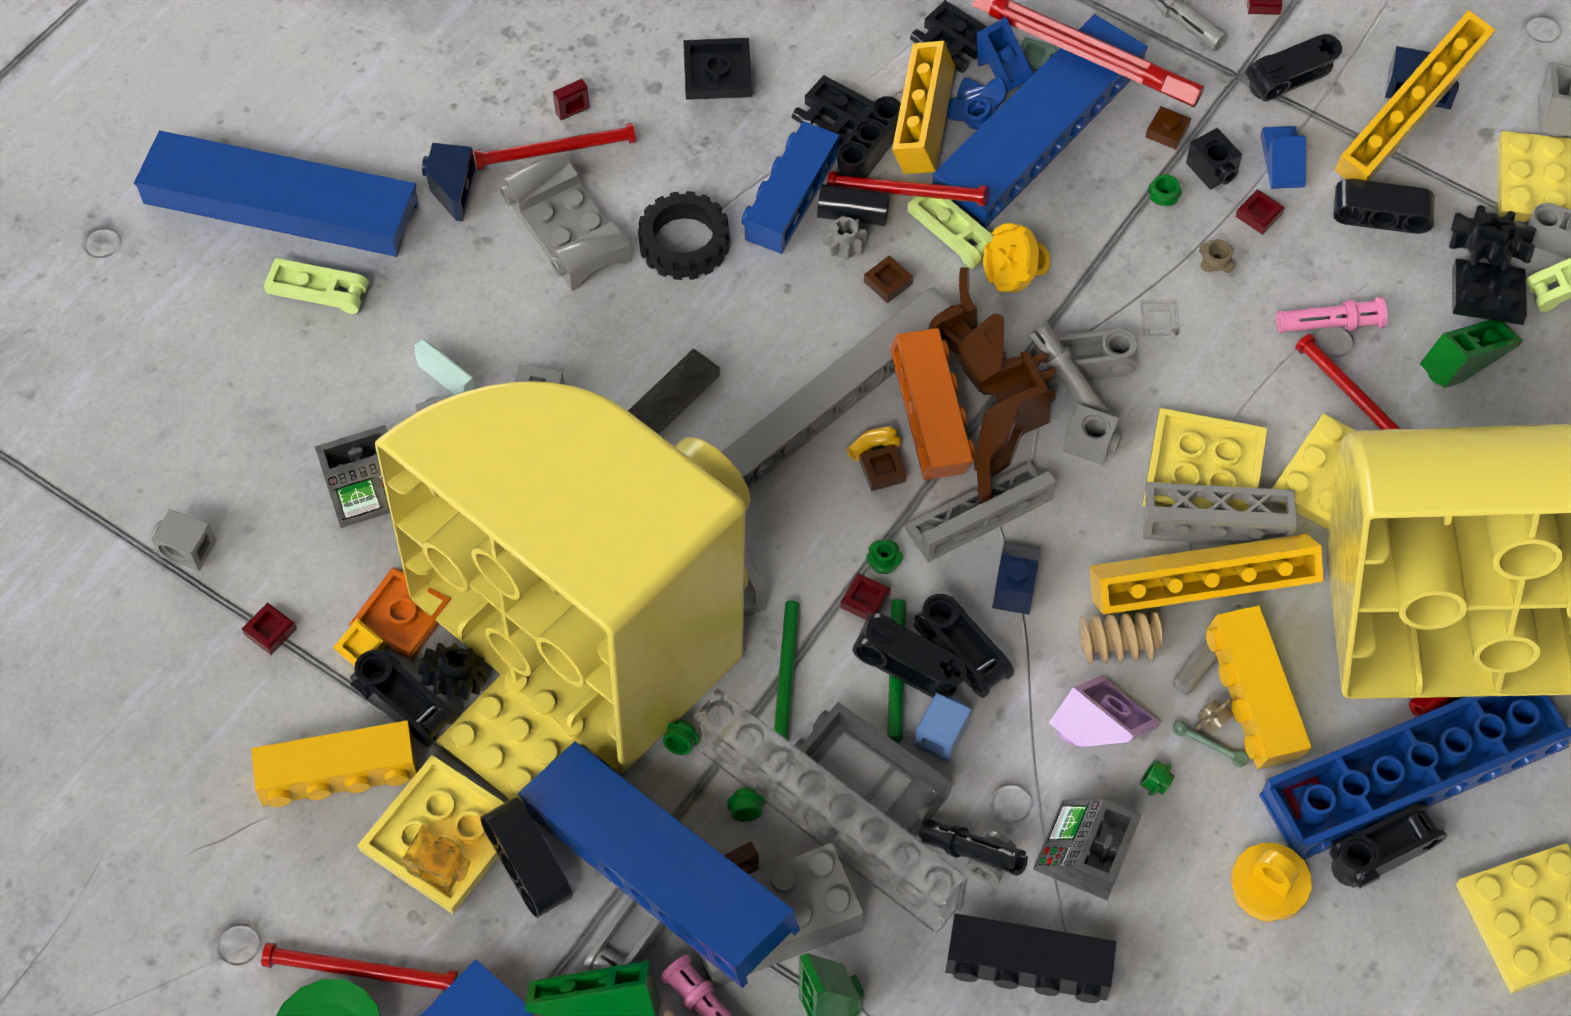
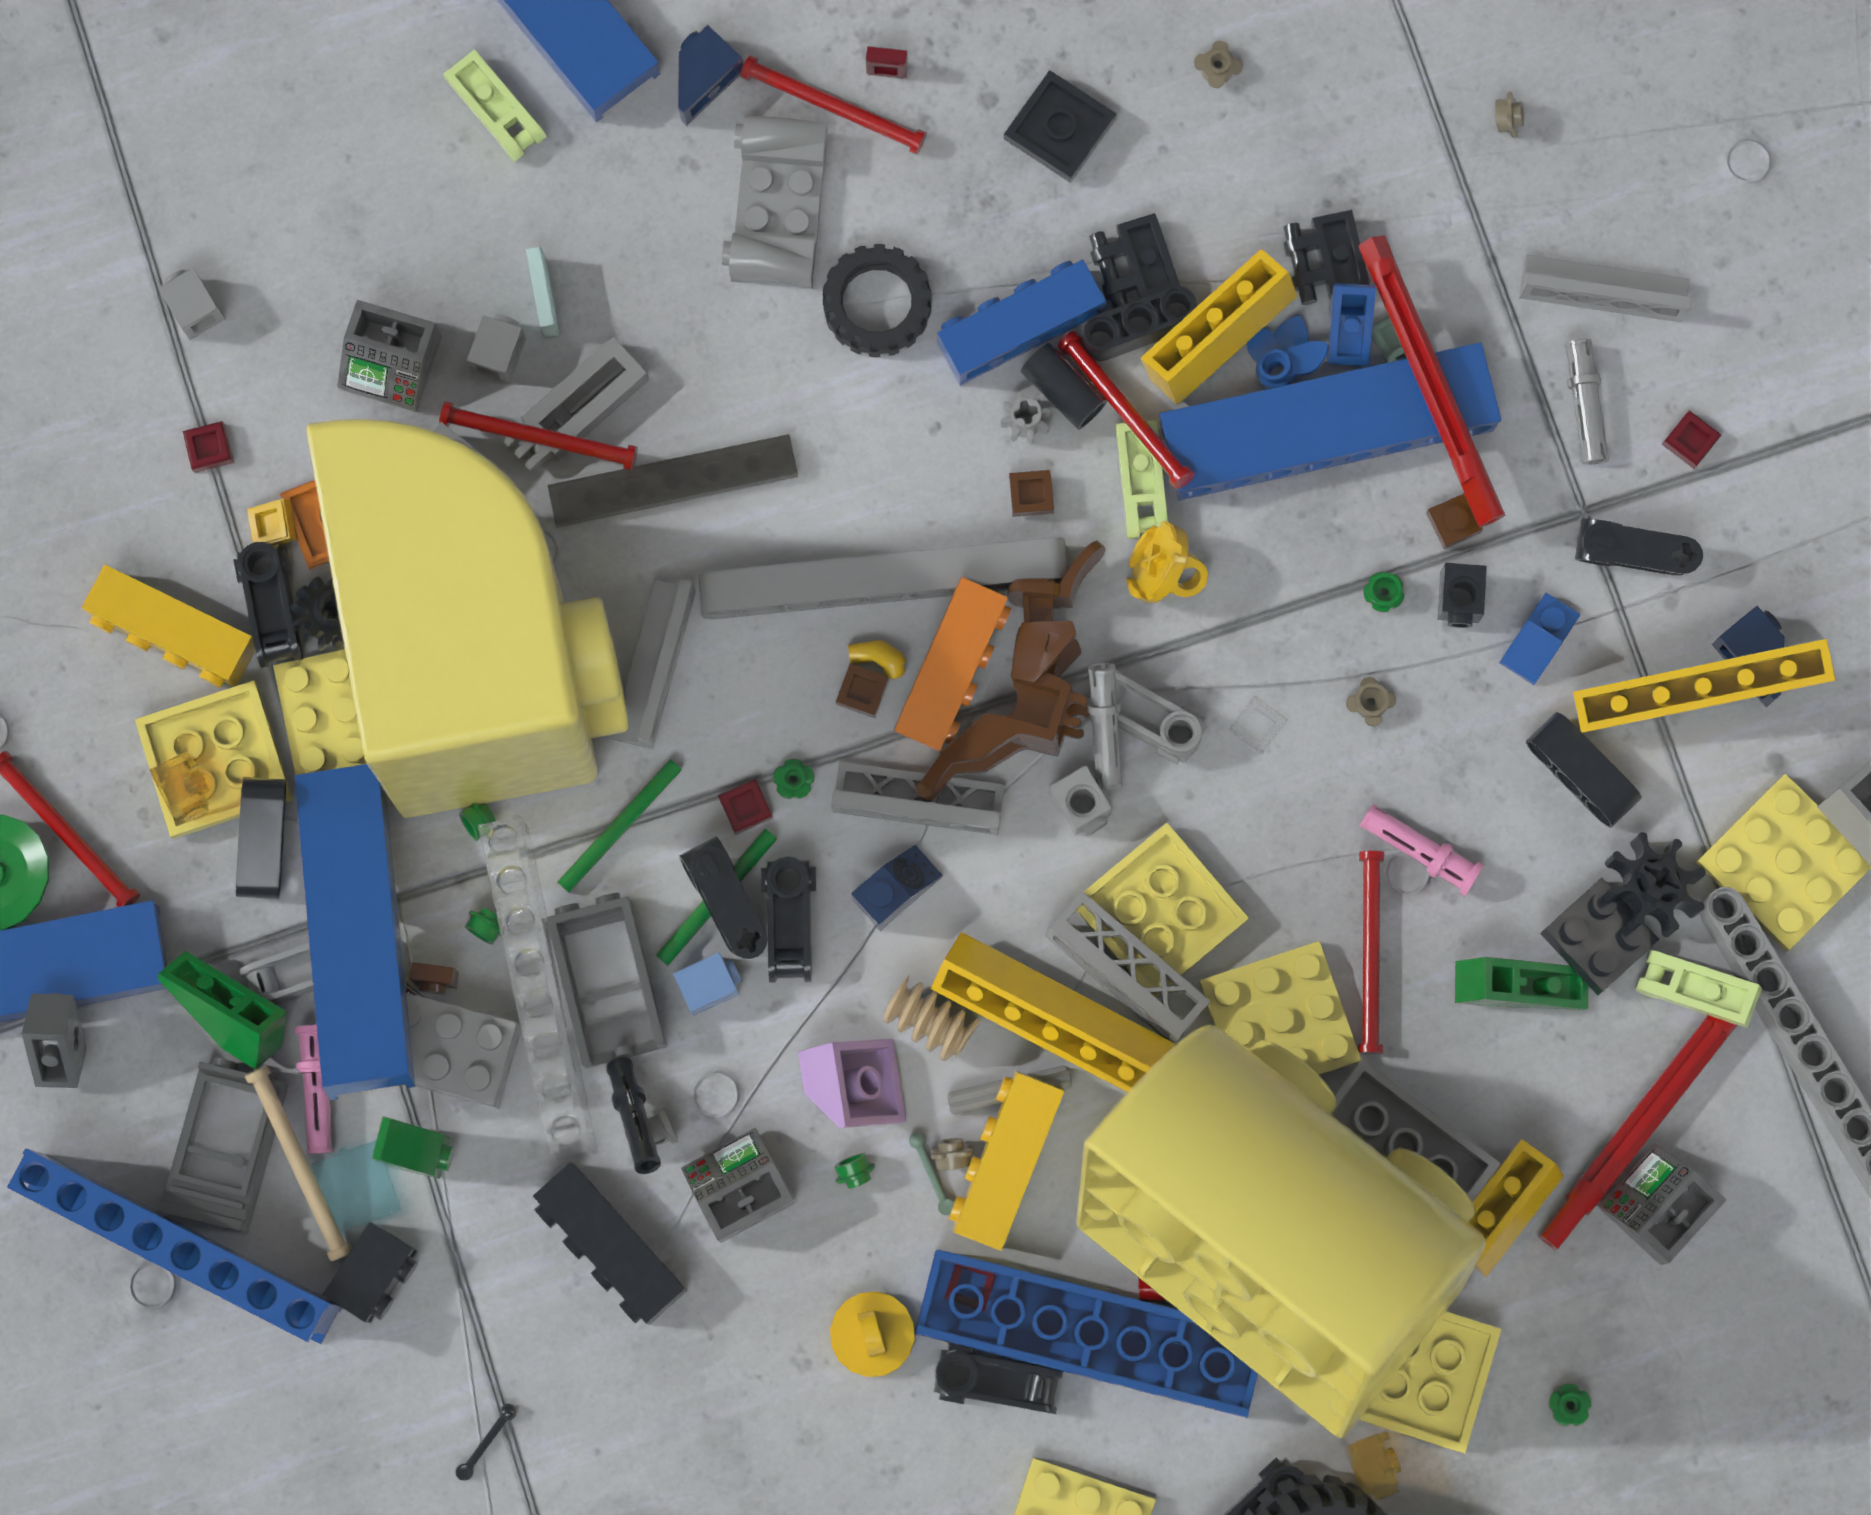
camera: 40 degrees right, 20 degrees up
(1260, 211) = (1460, 682): dark red tile -> none

